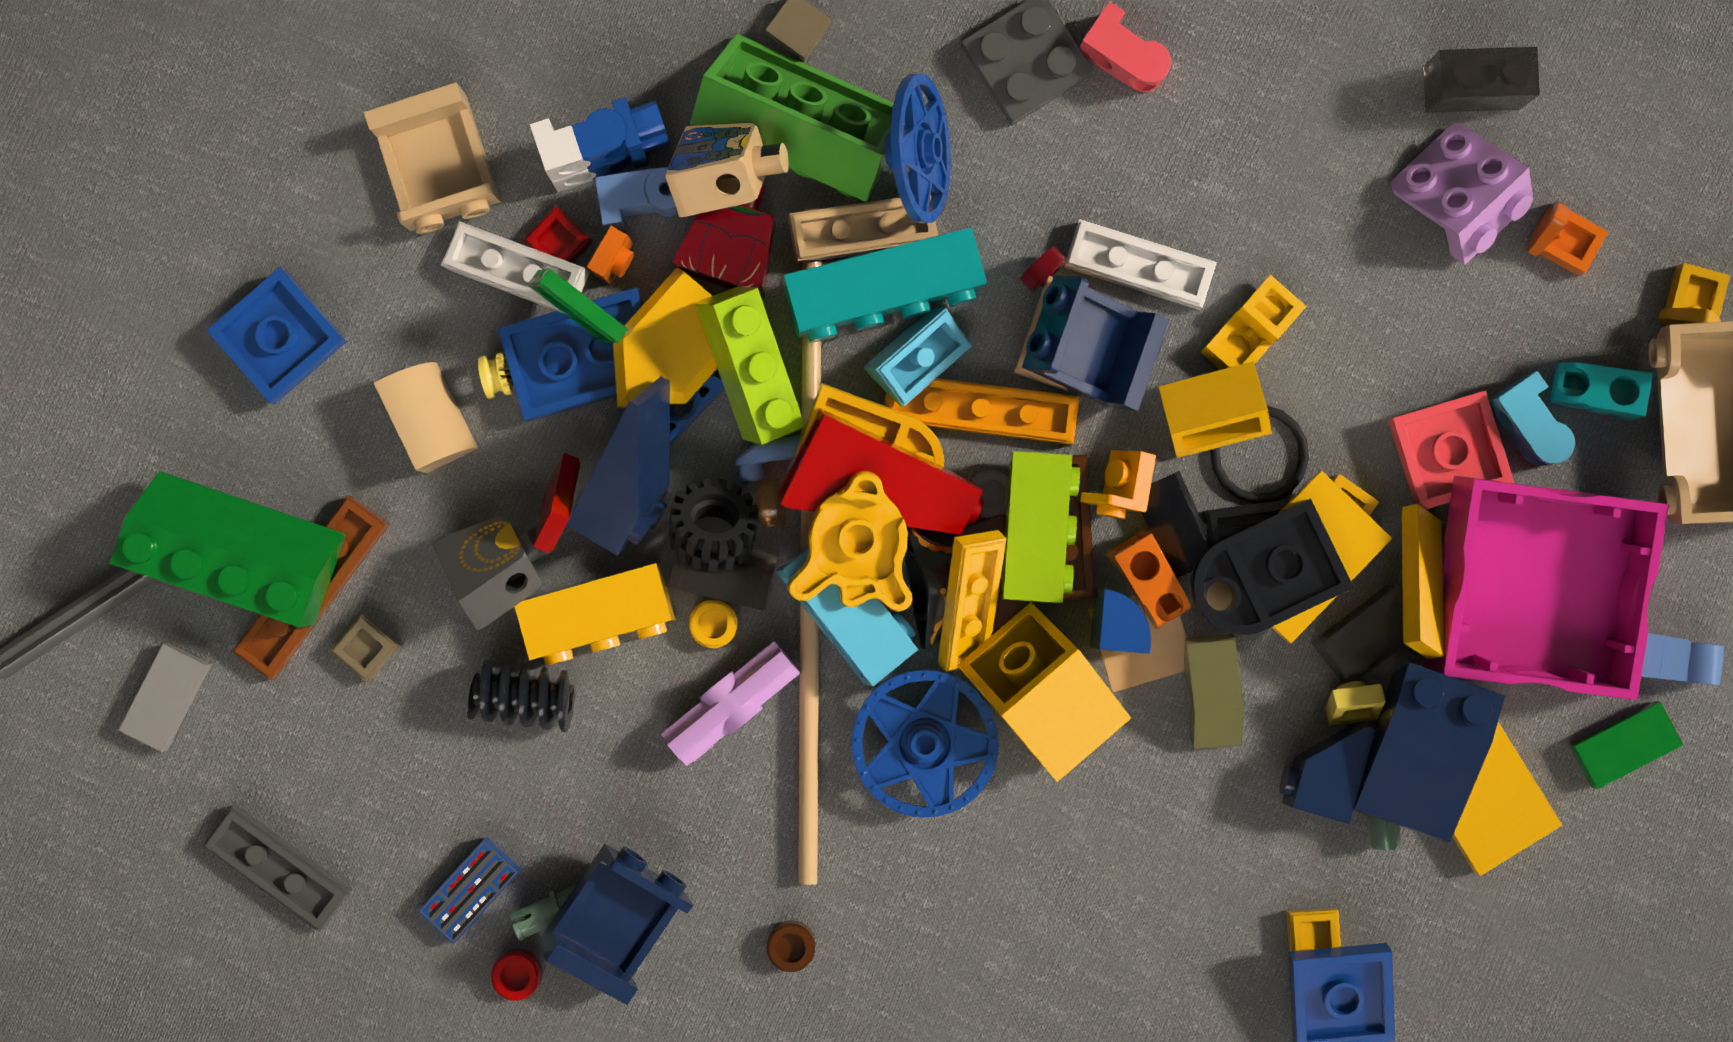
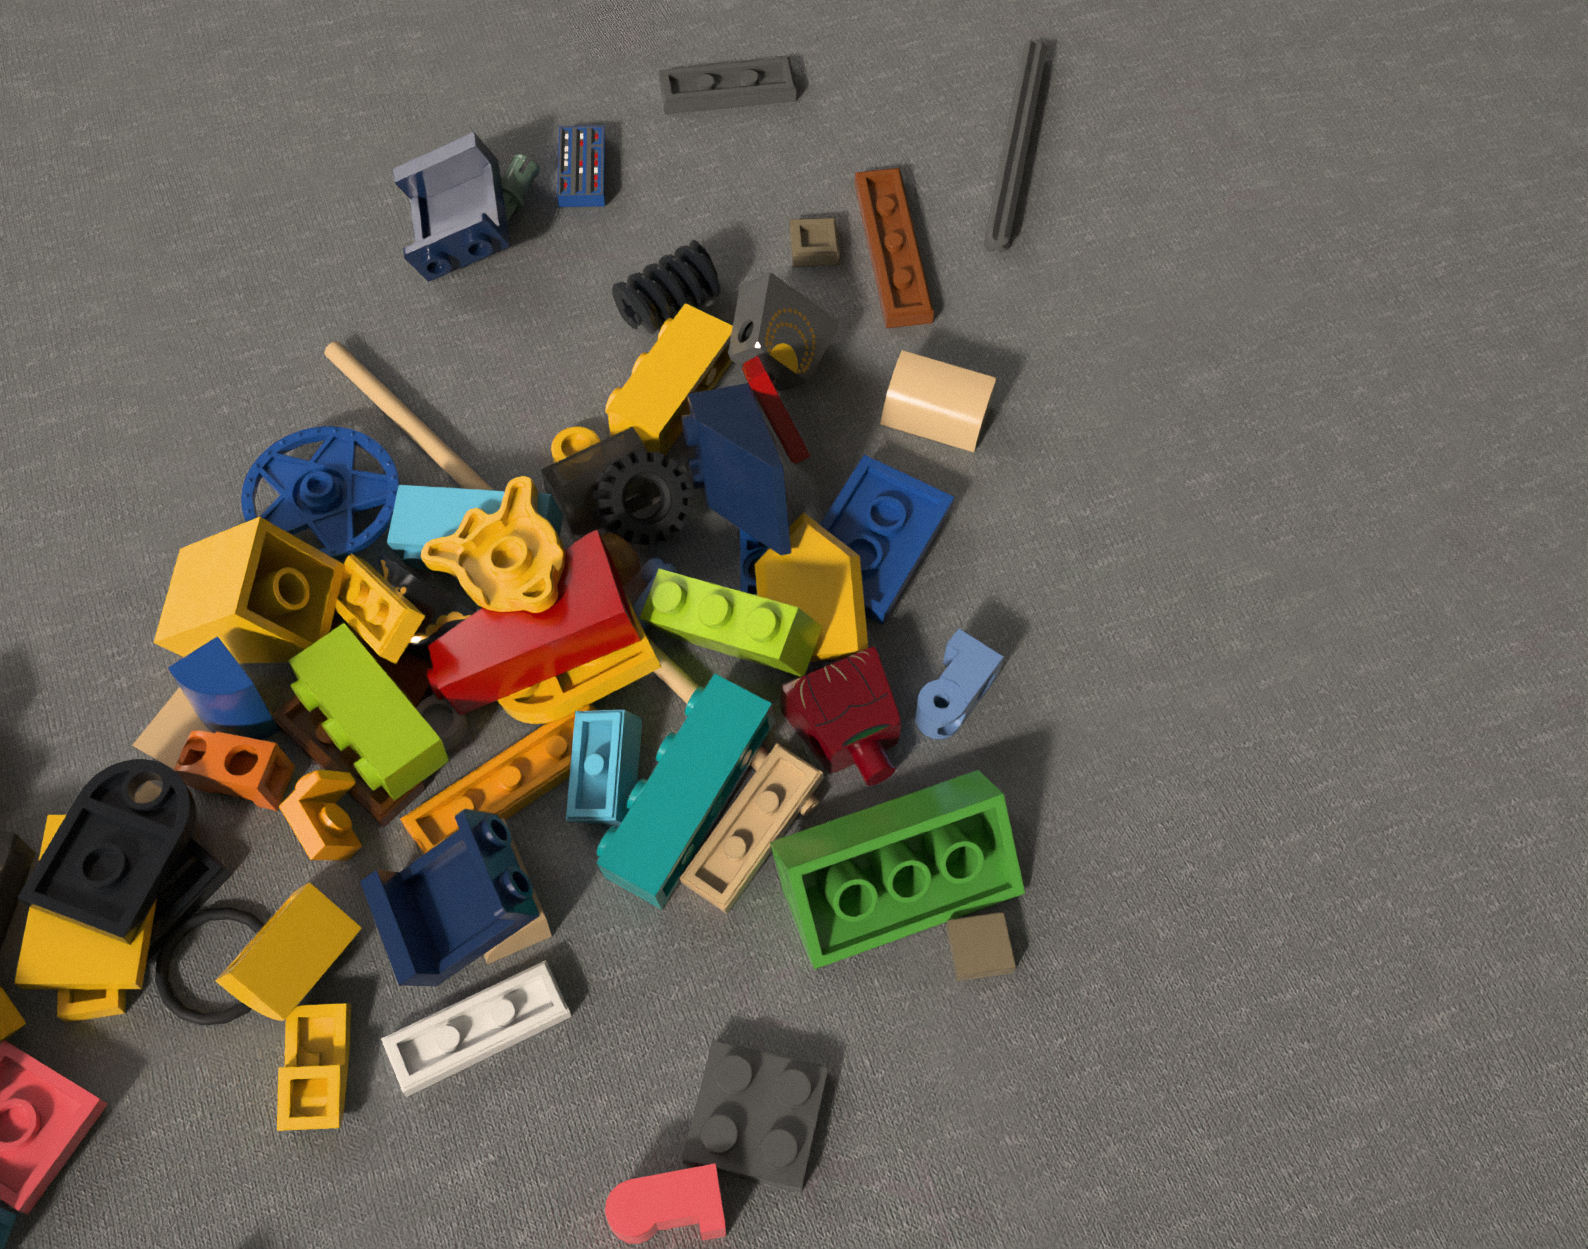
camera: 130 degrees right, 25 degrees down
(164, 697) = (912, 115): light grey tile -> none
(229, 549) = (966, 204): green slope -> none
(276, 335) = (1101, 366): blue plate -> none
(434, 158) = (1134, 576): tan panel -> none
(494, 376) = (922, 464): light yellow bush -> none
(505, 263) = (988, 550): white tile -> none
(516, 974) = (501, 142): red tile -> none
(558, 237) = (983, 605): red tile -> none
(577, 306) = (907, 538): green tile -> none
(600, 144) = (1021, 696): blue hips -> none
(612, 256) = (928, 622): orange plate -> none
(721, 167) = (913, 743): tan torso -> none
(730, 703) = (507, 407): lavender piece -> none
(791, 946) = (307, 304): reddish brown tile -> none
(919, 148) = (763, 909): blue wheel -> none
(1042, 268) = (560, 934): dark red tile -> none
(1176, 524) = (245, 832): black tile -> none
(1214, 691) = (95, 726): olive slope -> none

